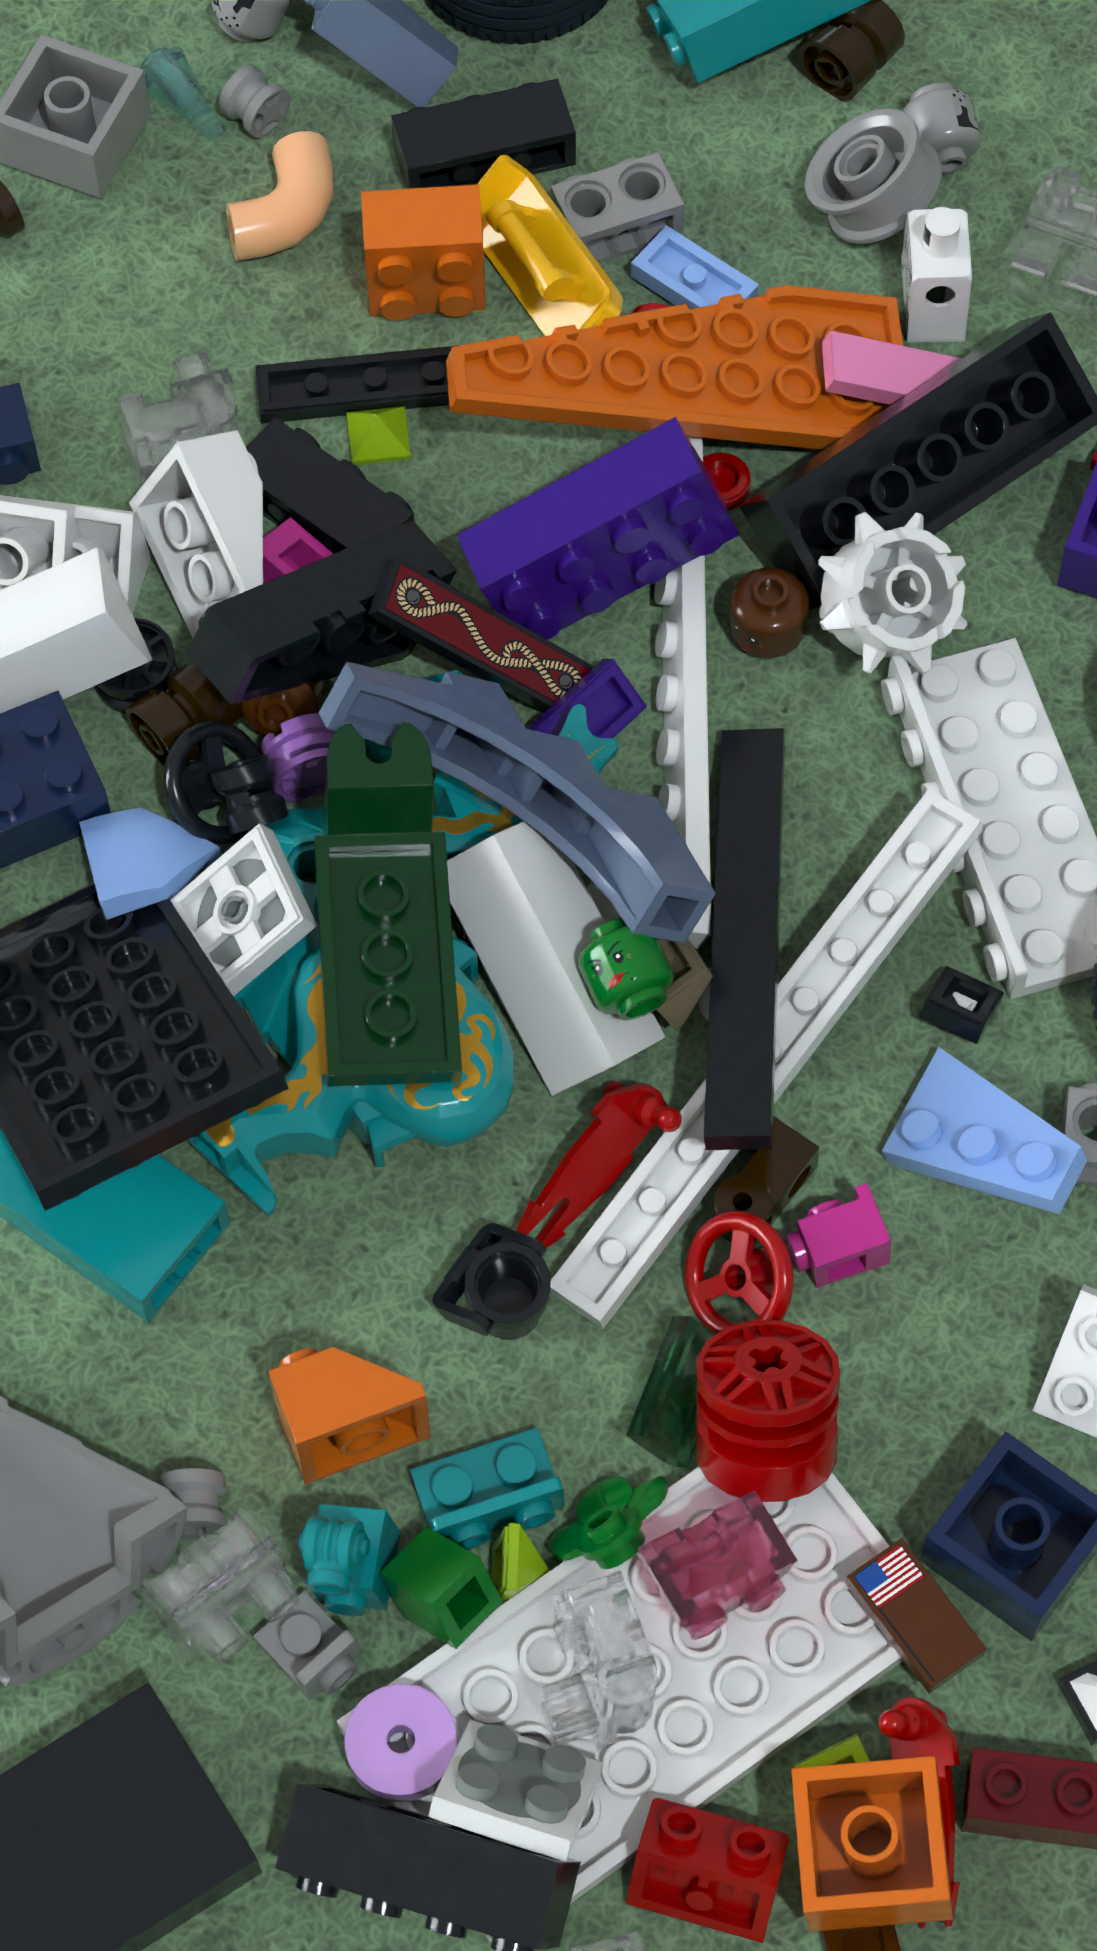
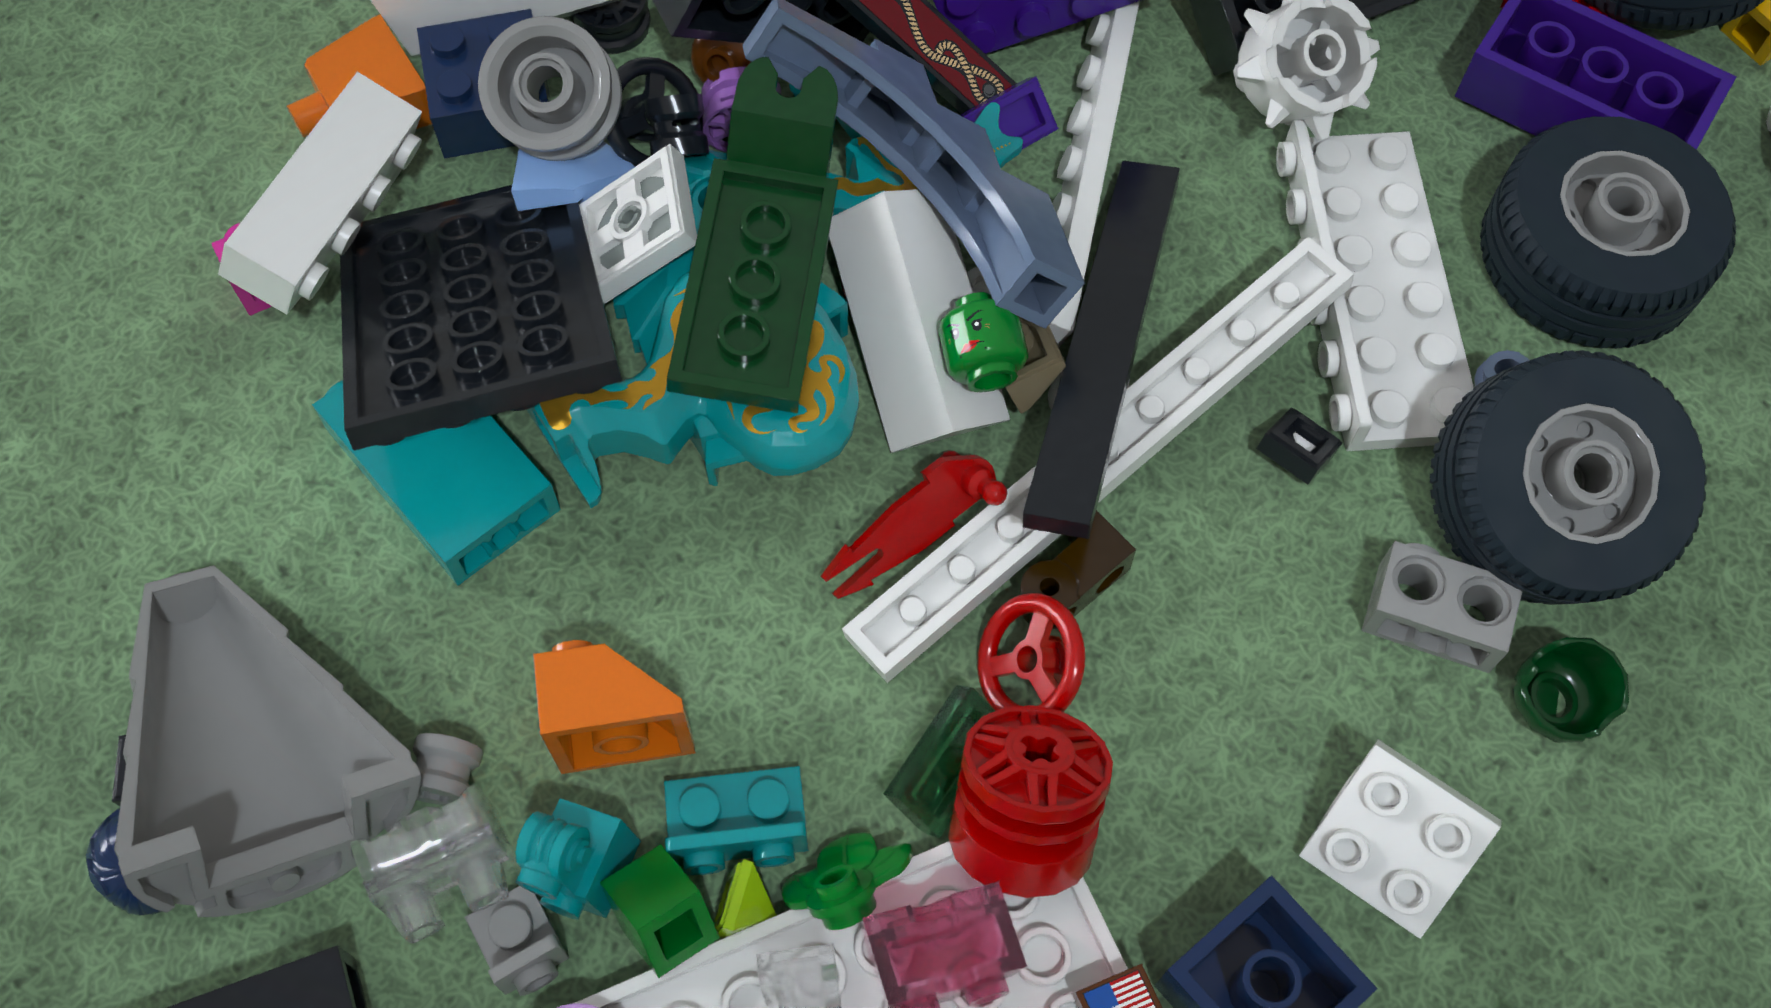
camera: 10 degrees right, 0 degrees up
(75, 780) = (523, 61): none -> light grey wheel
(189, 699) = (646, 39): dark brown wheel -> none
(501, 1281) = (795, 617): black piece -> none
(768, 612) = (1186, 66): reddish brown head -> none
(840, 1239) = (1139, 643): dark pink brick -> none
(982, 1139) = (1300, 576): light blue wing -> none

